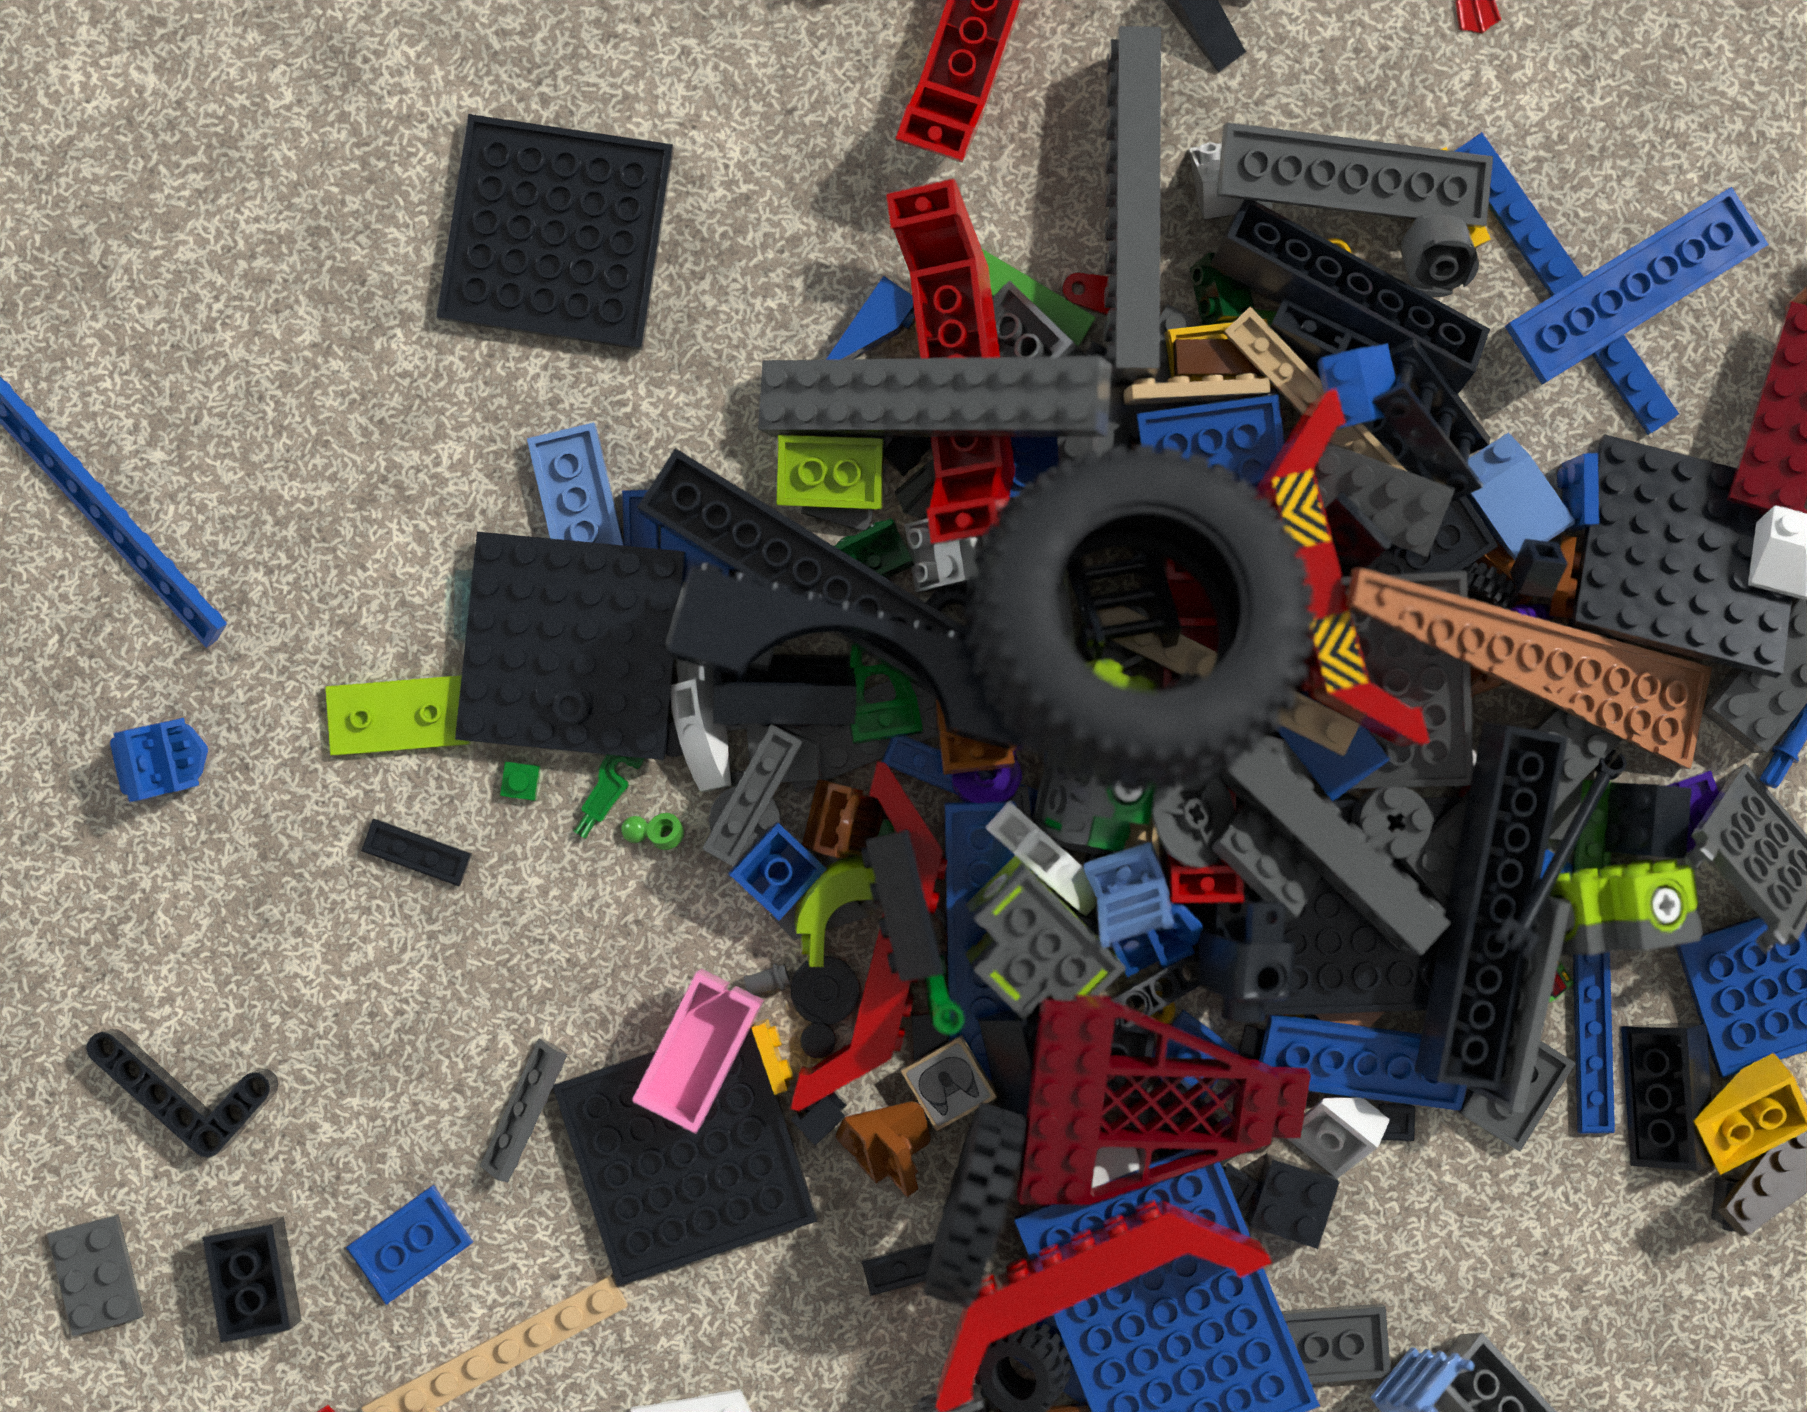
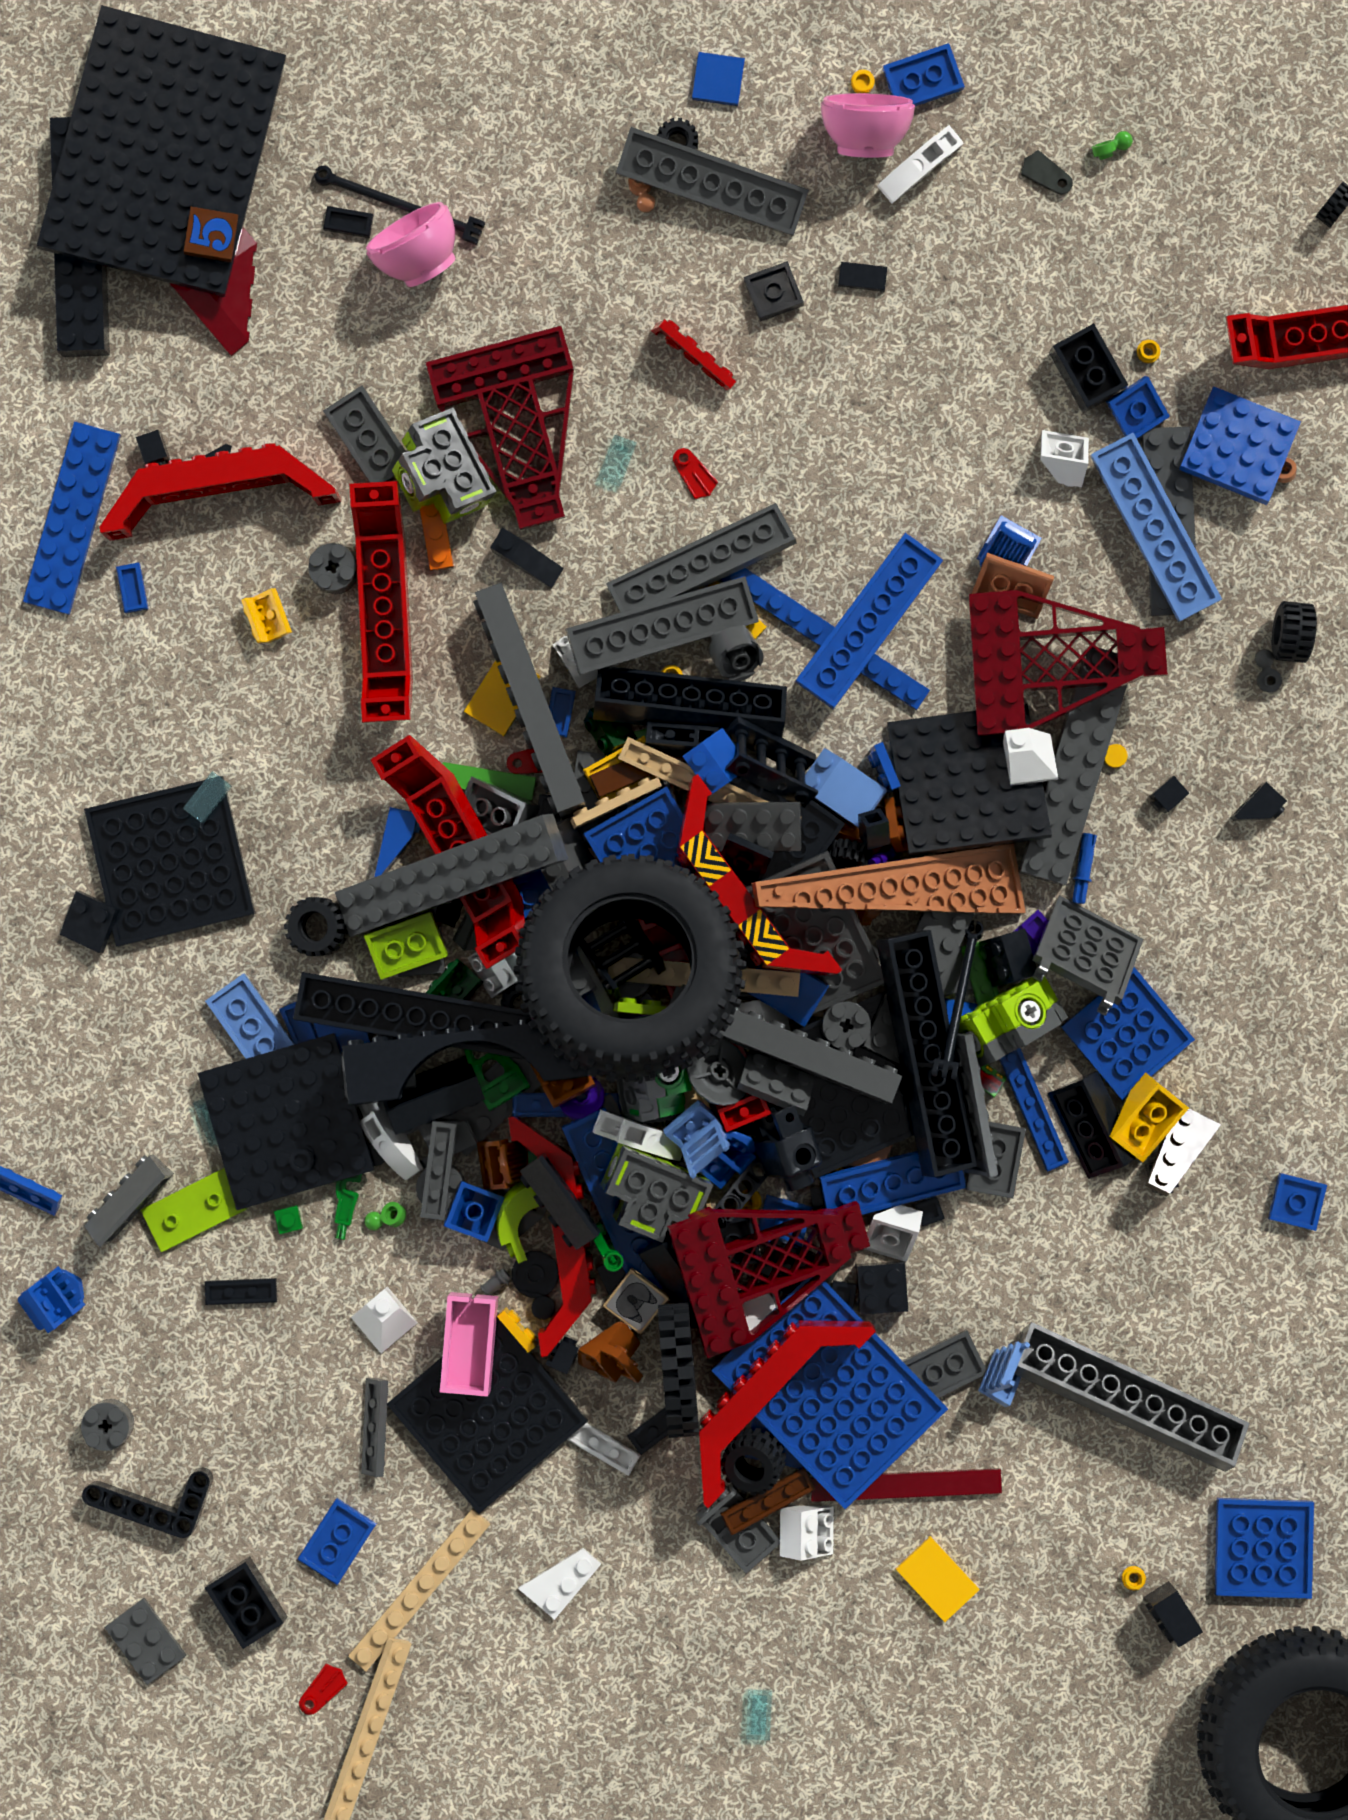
camera: 20 degrees left, 0 degrees up
(144, 969) = (98, 1435): none -> dark grey brick
(313, 666) = (128, 1200): none -> dark grey slope
(414, 269) = (89, 921): none -> black plate
(595, 969) = (384, 1320): none -> white slope
(641, 164) = (207, 797): none -> clear light blue tile
(702, 375) = (297, 923): none -> black tyre
(826, 1267) = (605, 1448): none -> white tile
(1078, 194) = (492, 703): none -> yellow tile
(1173, 233) = (561, 708): none -> blue tile
(1448, 114) = (704, 560): none -> dark grey plate

